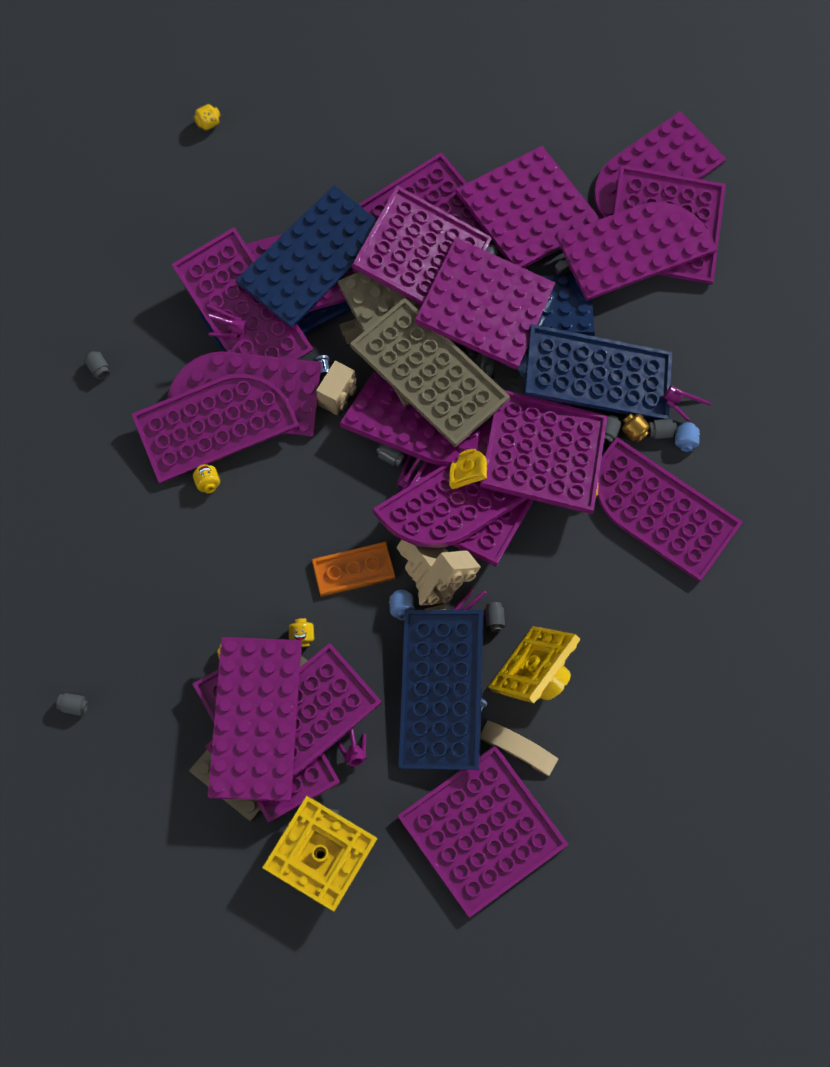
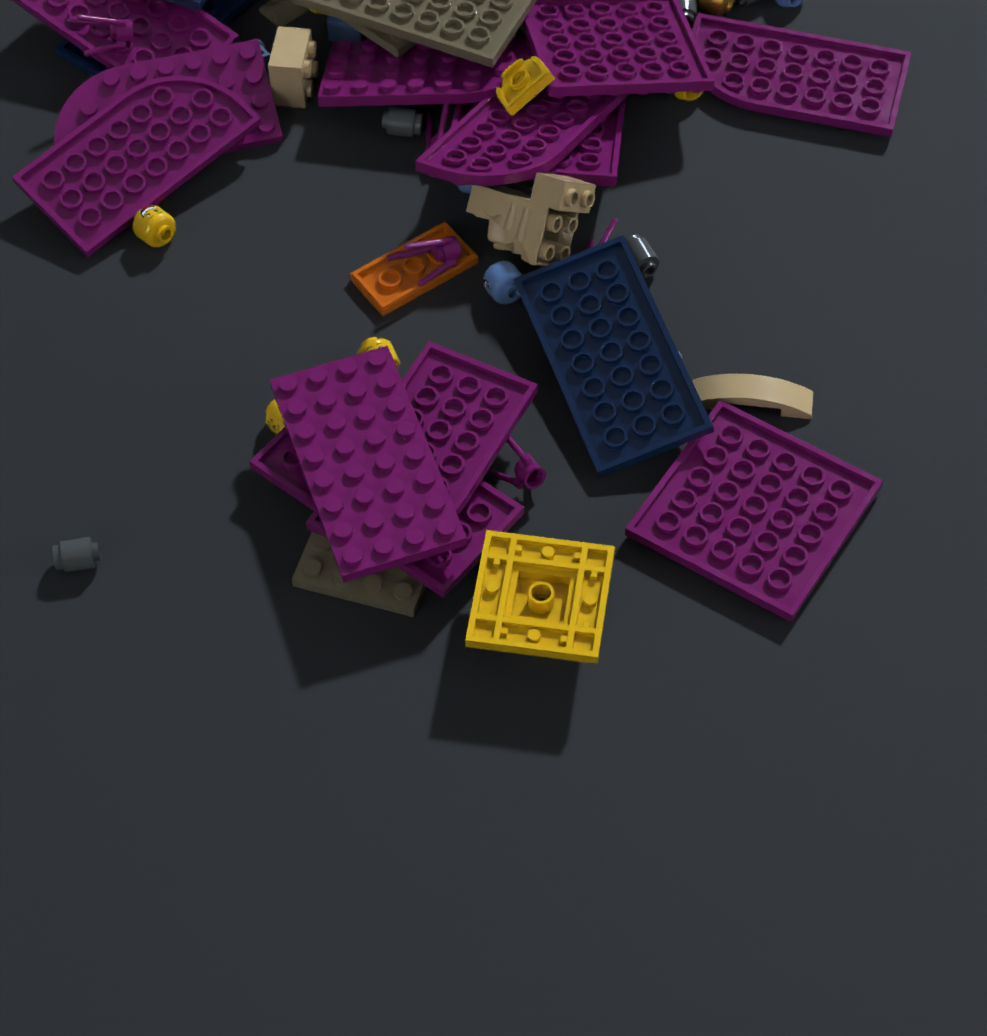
camera: 20 degrees left, 15 degrees down
(374, 568) = (444, 250): none -> magenta plant
(536, 666) = (731, 278): yellow piece -> none

